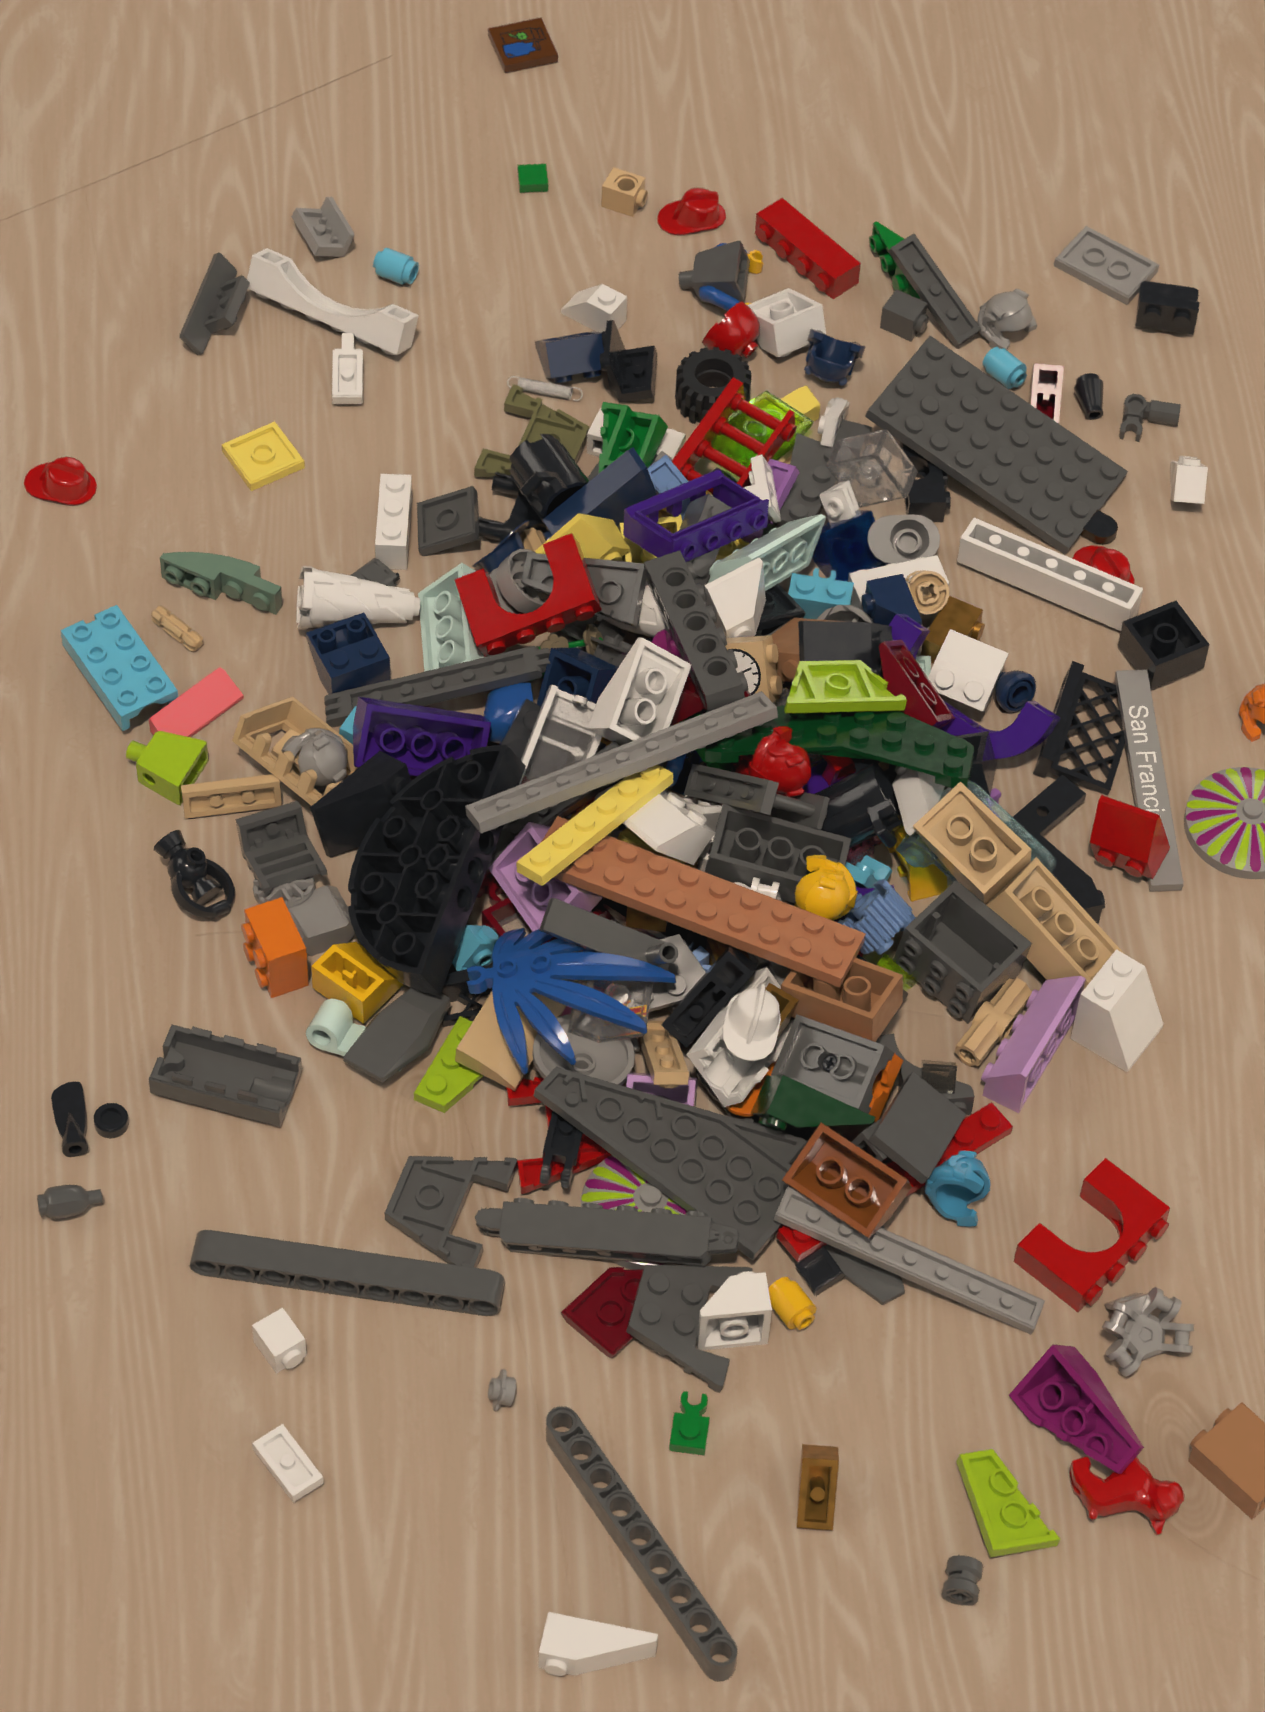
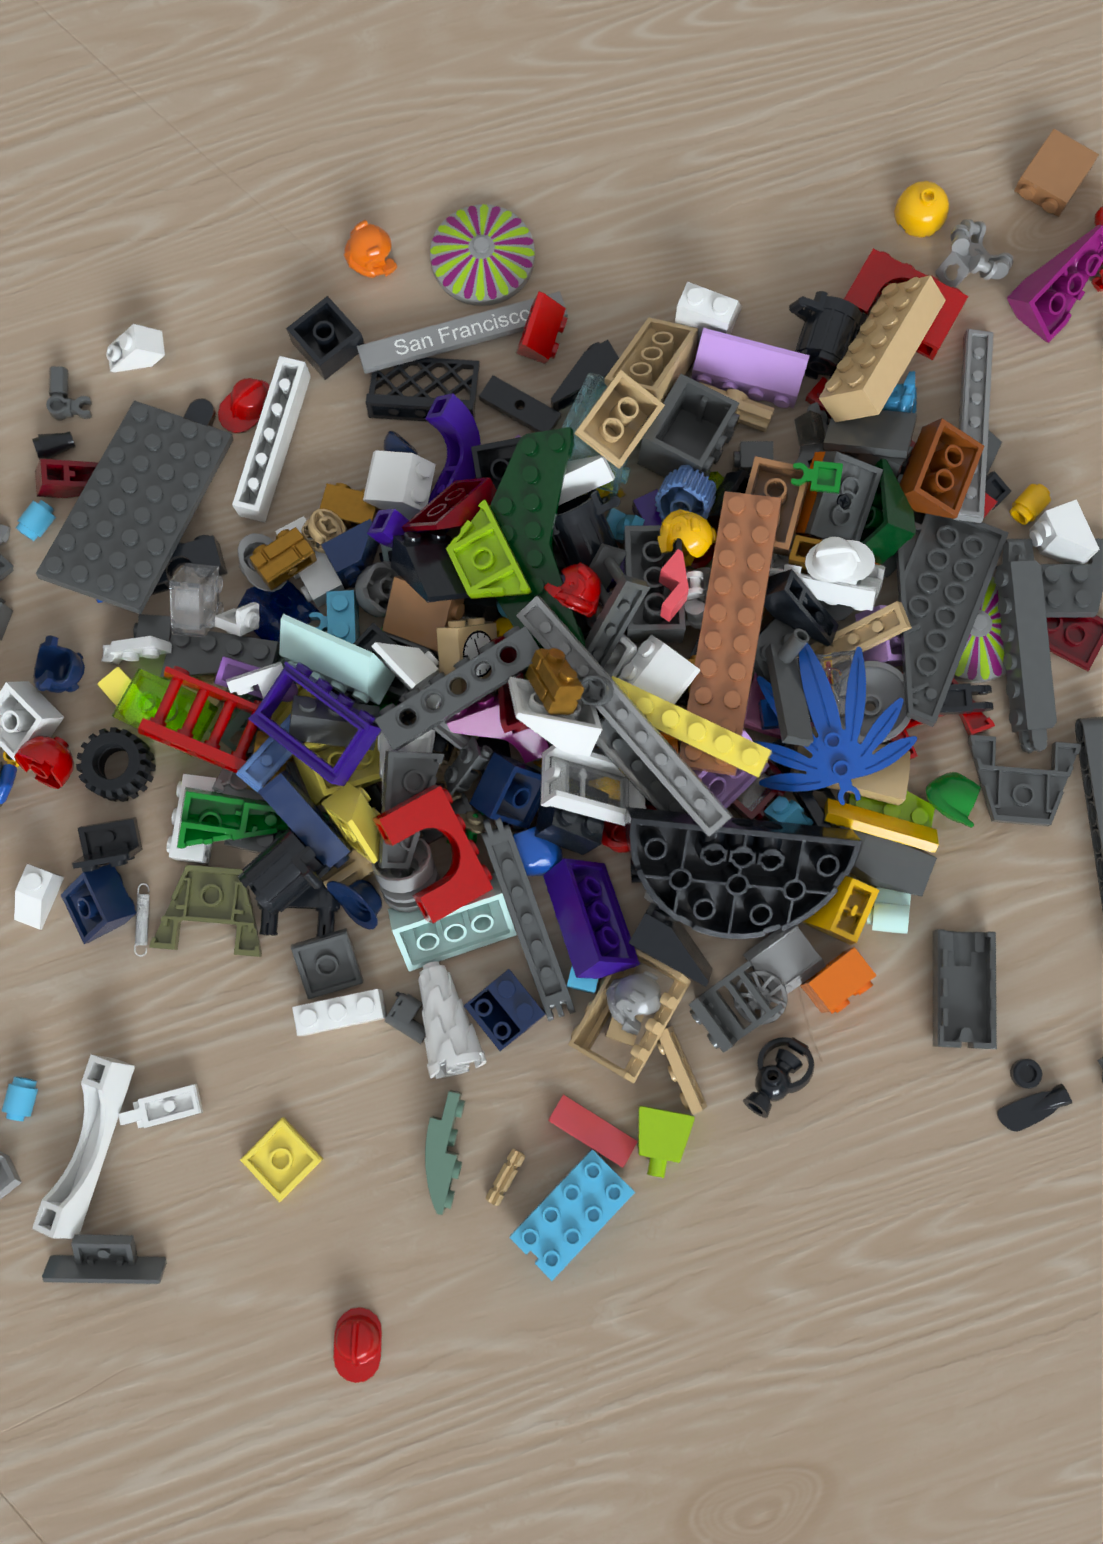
camera: 95 degrees left, 25 degrees up
(435, 1035) = (881, 825): none -> yellow tile
(444, 1107) = (953, 796): none -> green piece
(652, 729) = (591, 693): none -> dark grey wheel
(672, 693) = (554, 681): none -> pearl gold brick
(771, 856) = (674, 578): none -> coral slope
(856, 1021) = (823, 477): none -> green plate
(898, 543) = (282, 557): none -> pearl gold brick
(920, 1028) = (748, 450): none -> dark grey brick
(1021, 1160) = (882, 349): none -> tan brick
(1059, 1129) = (827, 331): none -> black container
(1224, 1295) = (922, 209): none -> yellow cylinder

